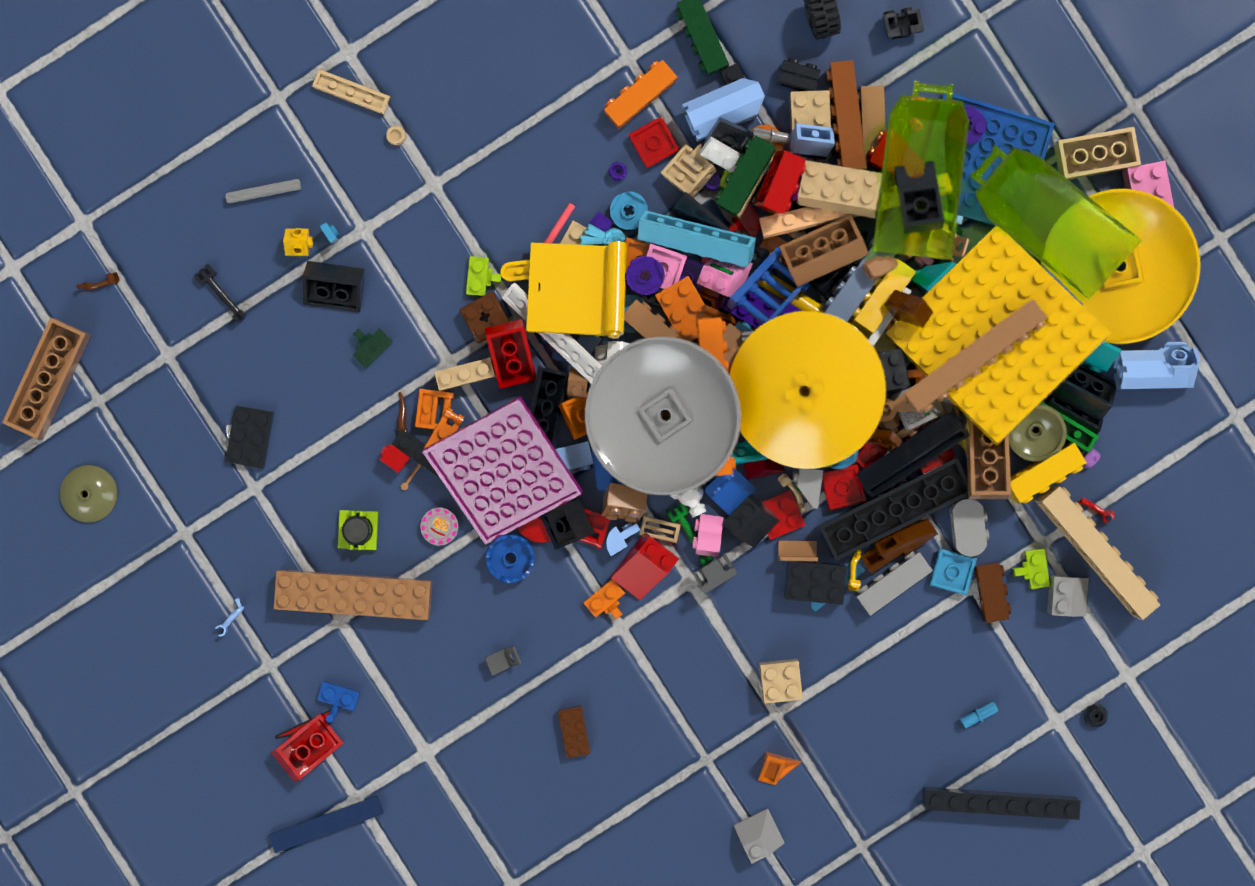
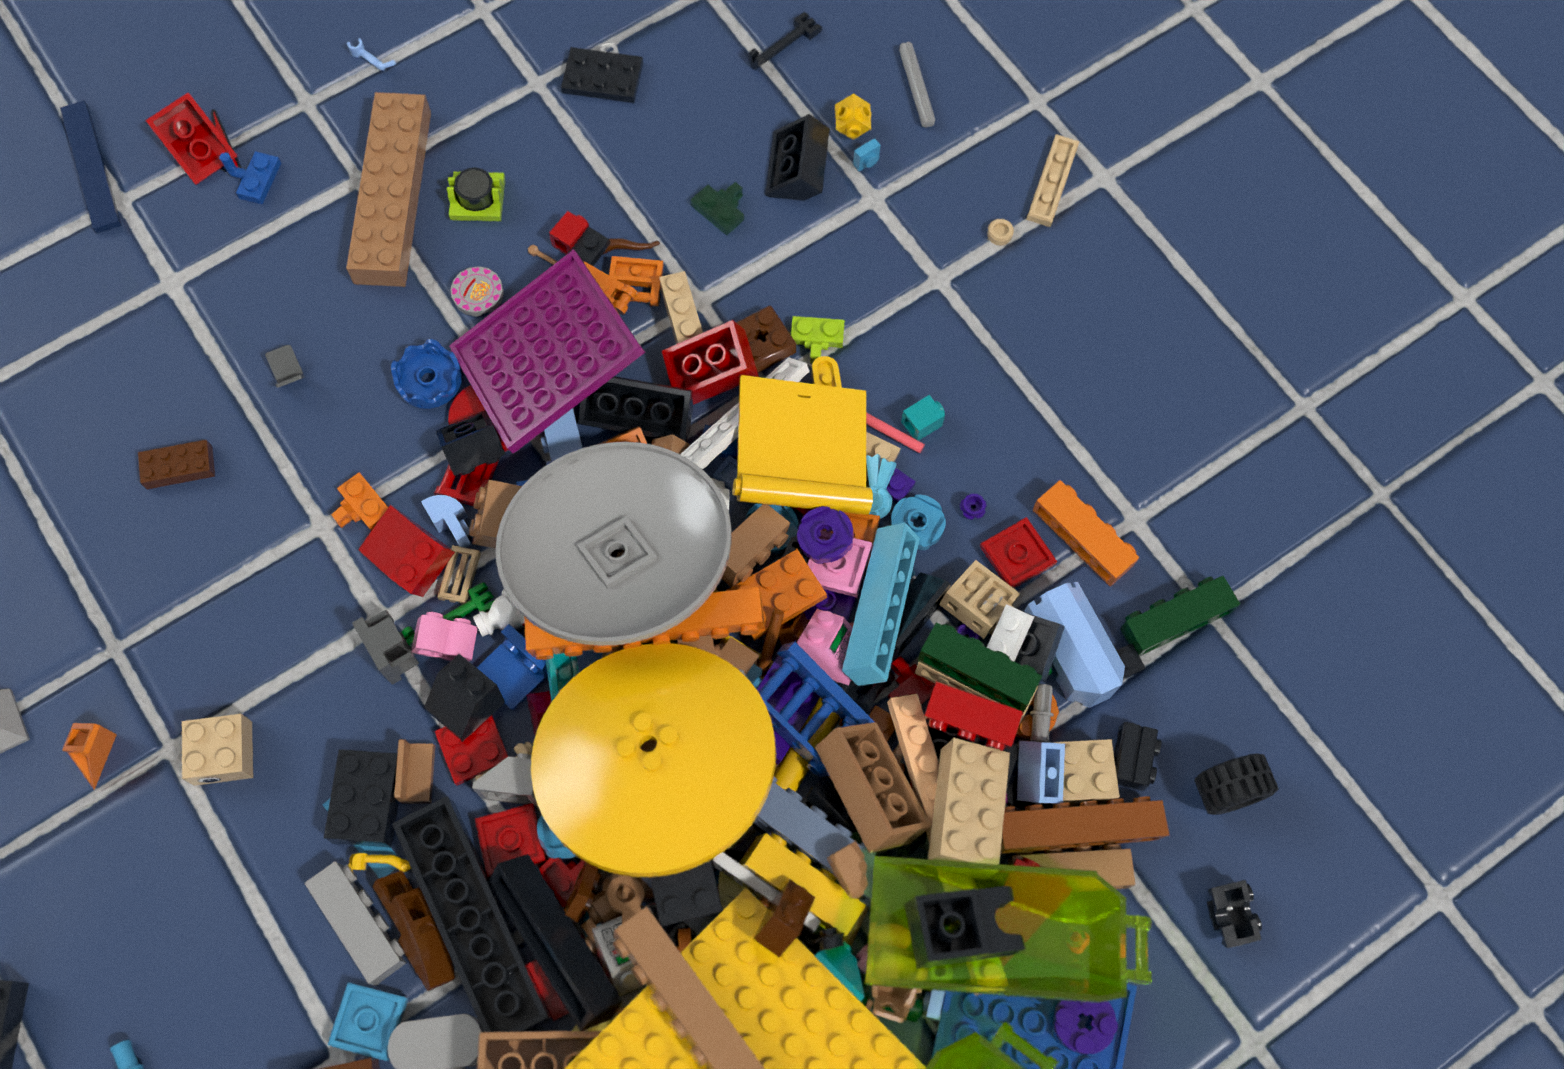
camera: 90 degrees right, 20 degrees down
(550, 202) = (923, 417): none -> teal brick
(918, 281) = (829, 939): none -> black plate

